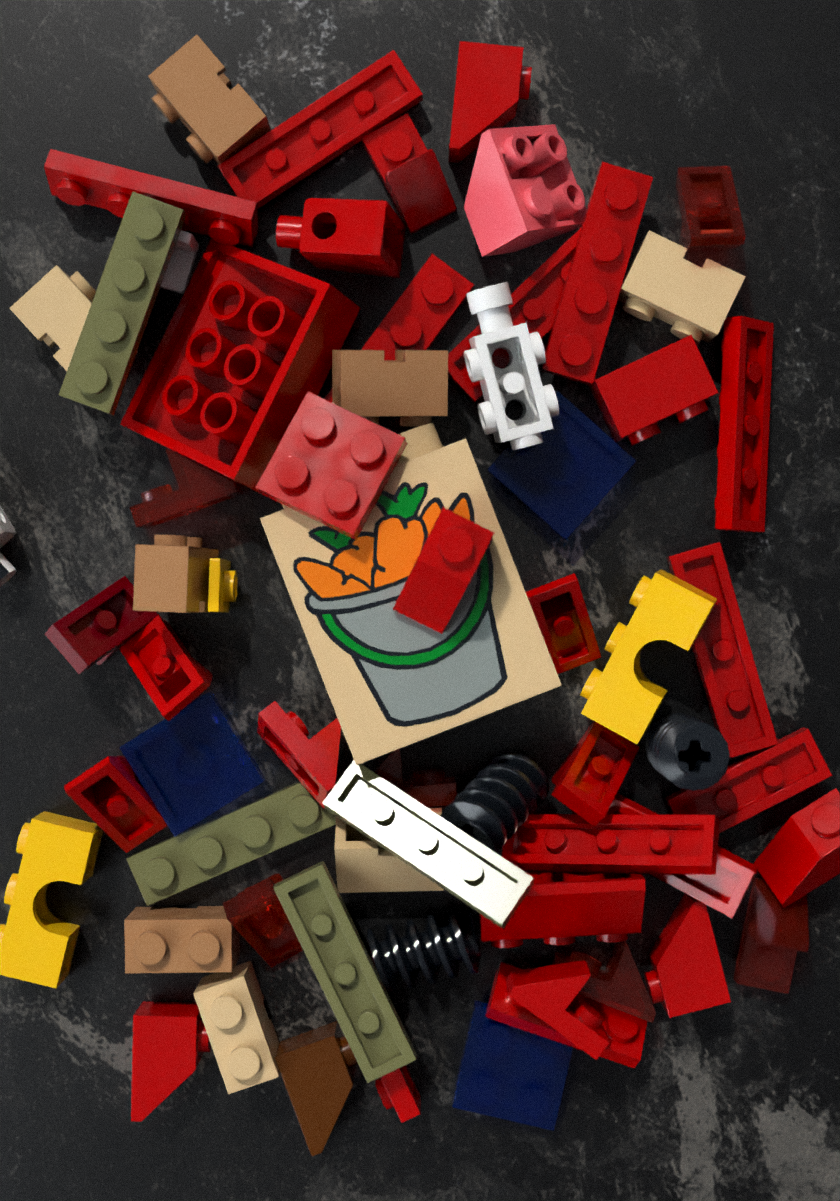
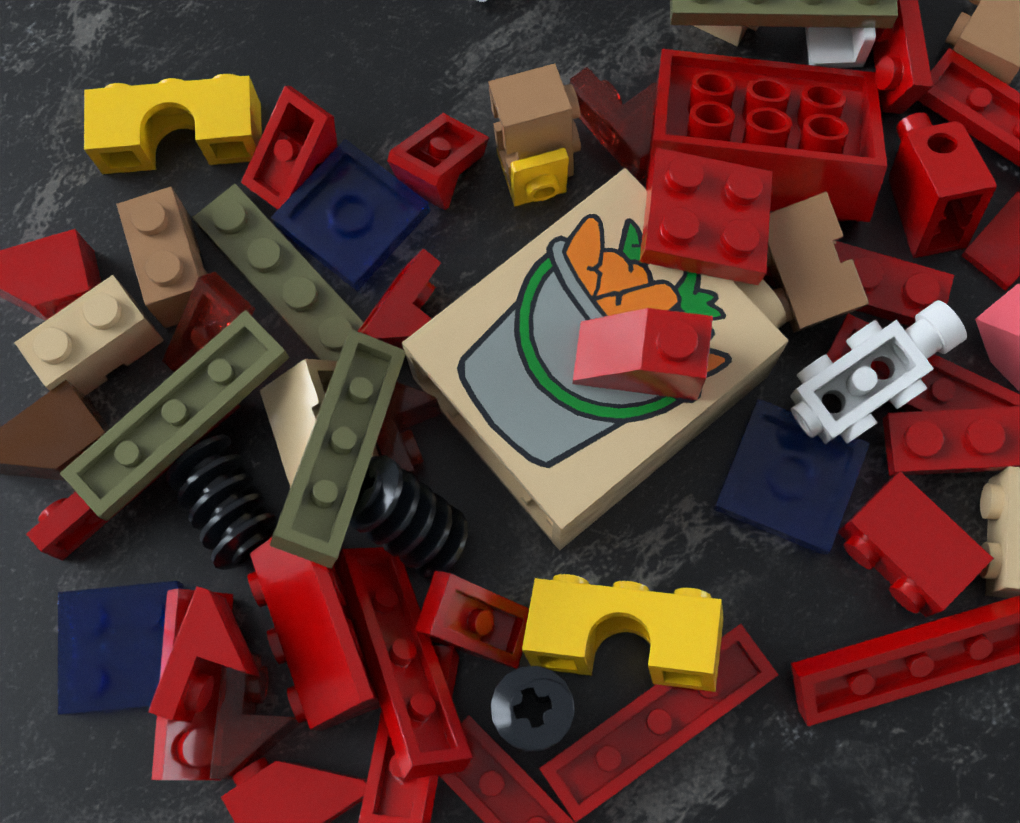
camera: 75 degrees right, 15 degrees down
(99, 626) = (454, 80): dark red slope -> none
(564, 623) = (625, 527): red slope -> none

